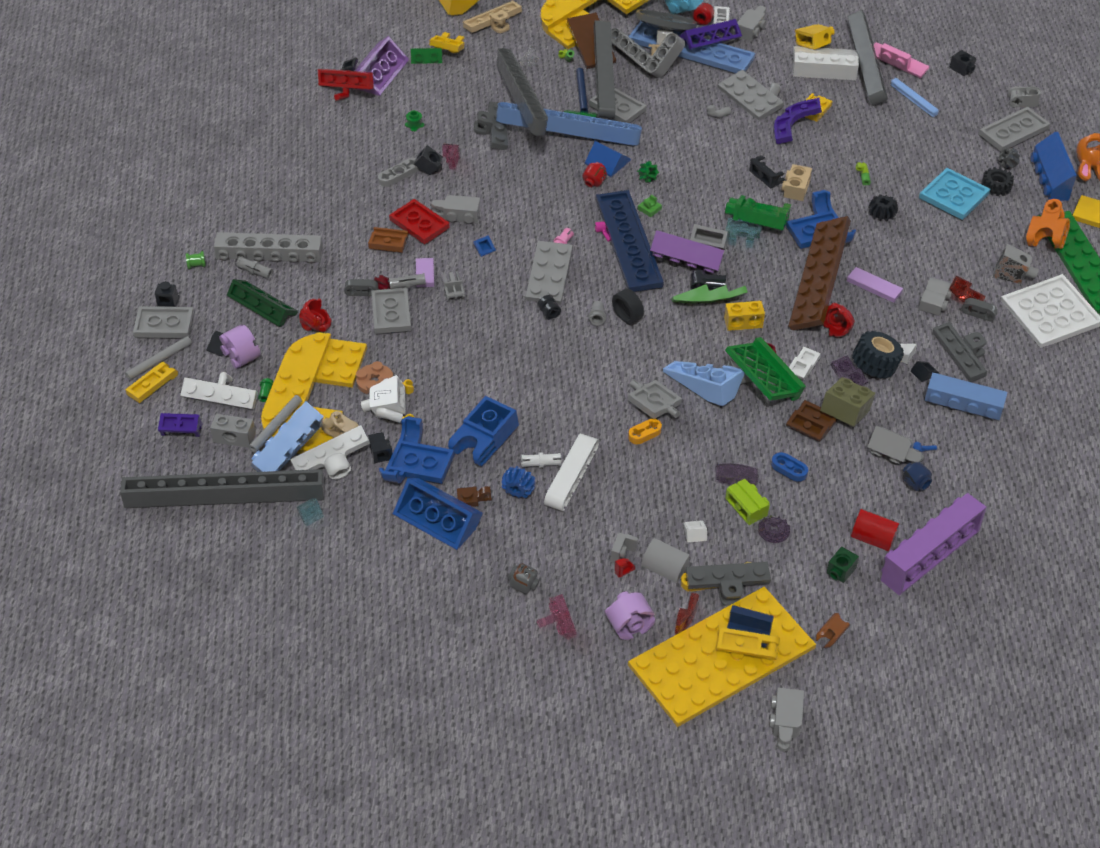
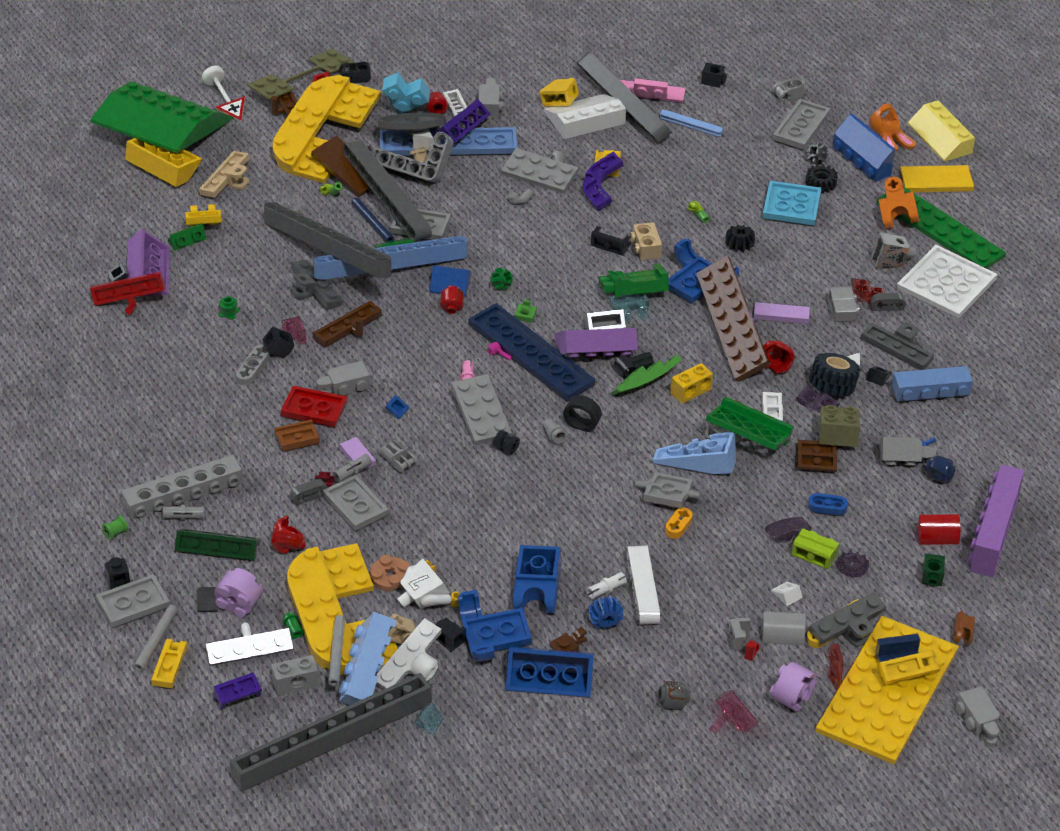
camera: 30 degrees left, 5 degrees down
(496, 165) = (347, 323): none -> reddish brown plate

